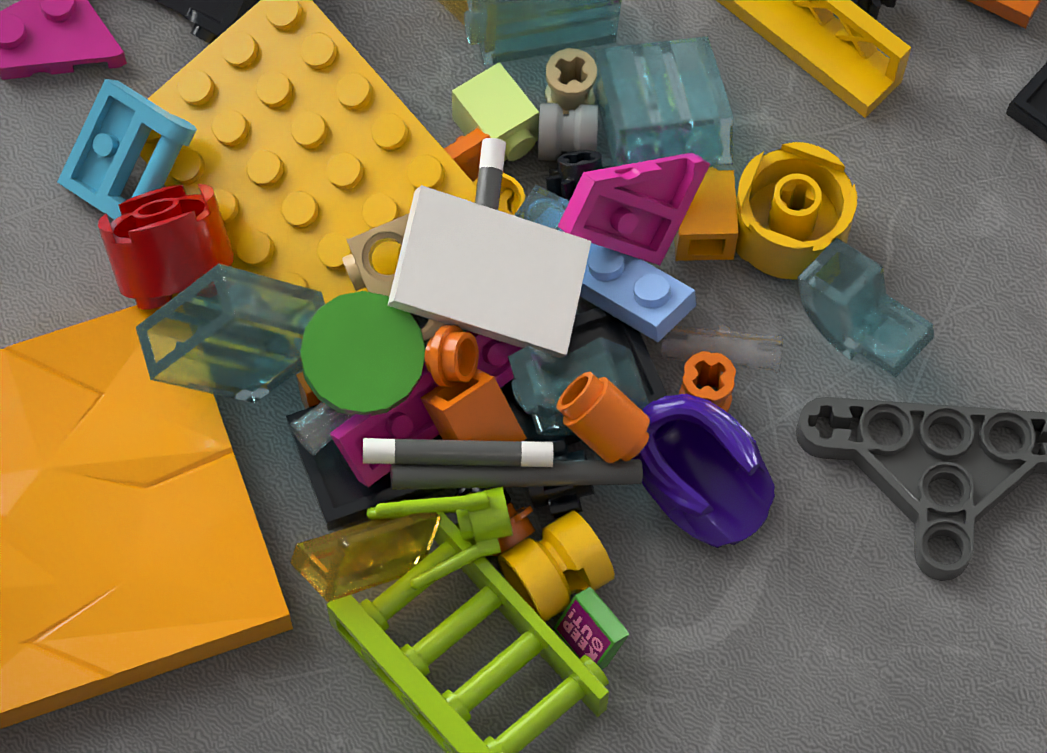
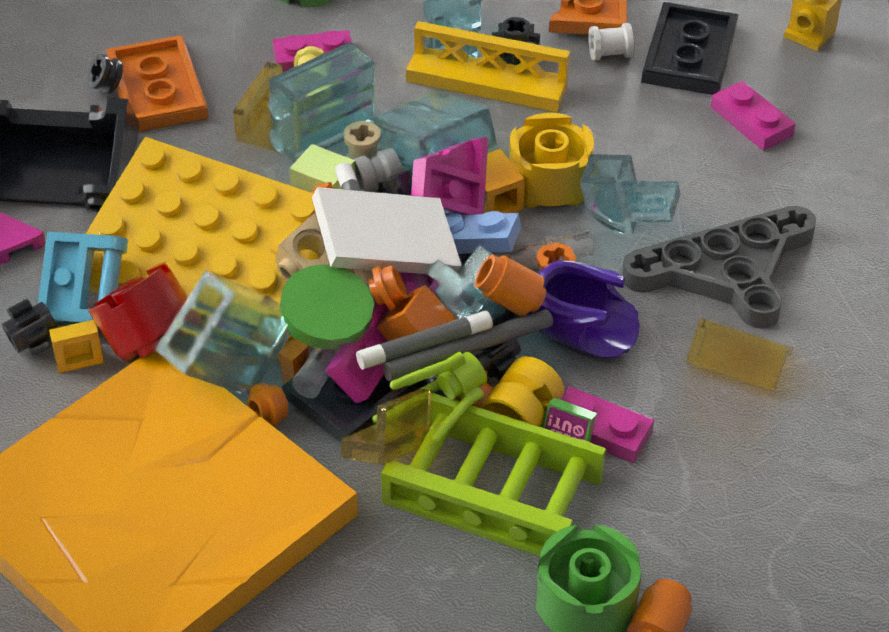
camera: 25 degrees left, 20 degrees down
(38, 199) = (29, 327): none -> black gear
(77, 247) = (76, 346): none -> yellow plate
(257, 433) = (268, 403): none -> orange plate
(657, 648) = (615, 427): none -> dark pink plate
(874, 608) = (738, 353): none -> clear yellow panel
(994, 36) = (611, 41): none -> white bush

